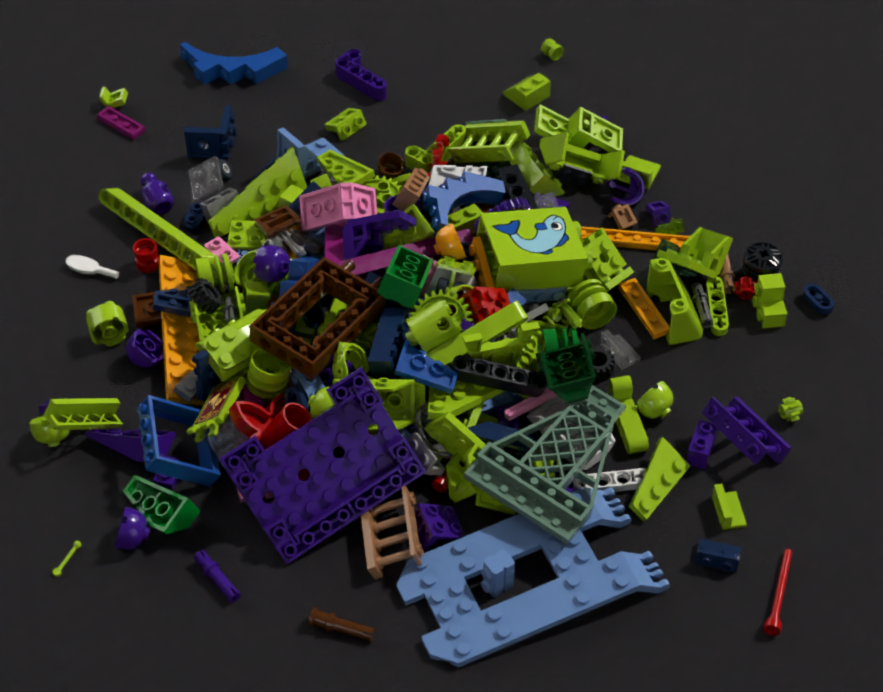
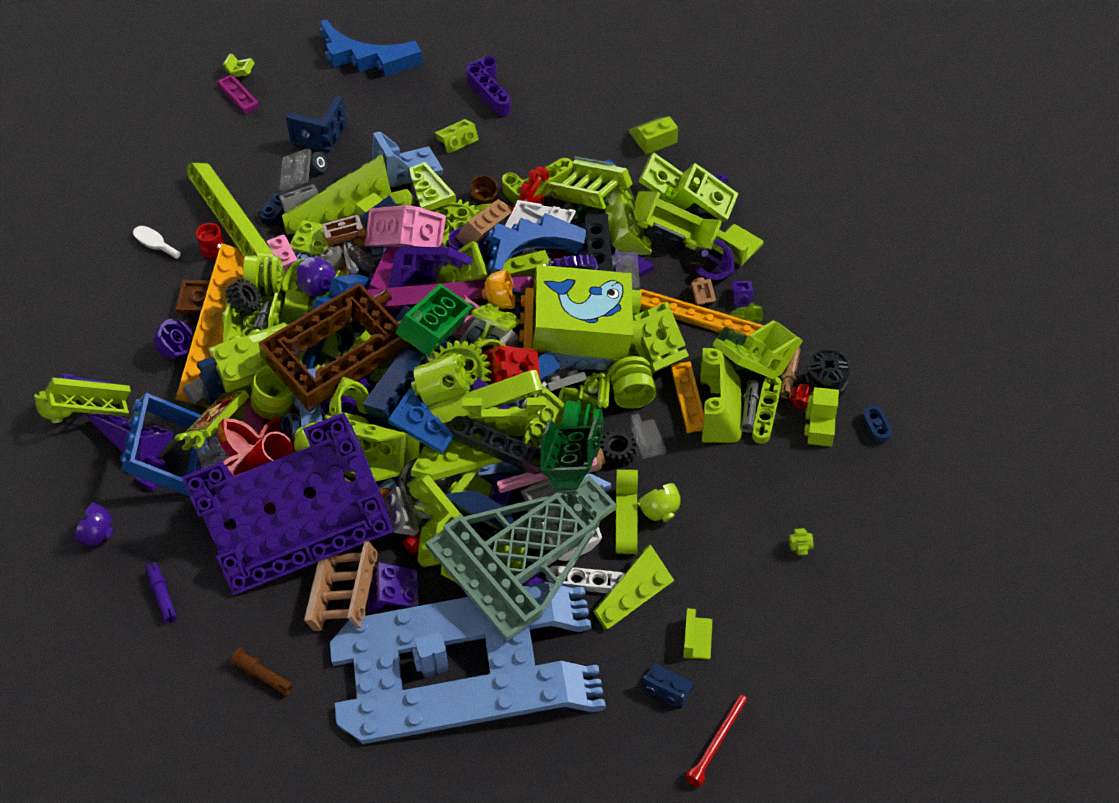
camera: 15 degrees right, 5 degrees up
(57, 571) = (15, 552): lime hinge -> none
(107, 324) = (146, 306): lime brick -> none
(156, 194) = (242, 177): dark purple piece -> none
(161, 507) = (131, 509): green wedge -> none
(172, 301) = (210, 295): dark blue wing -> none
(552, 49) = (693, 89): lime wheel -> none
(702, 444) = (693, 560): dark purple brick -> none
(746, 430) = (754, 550): dark purple fence -> none

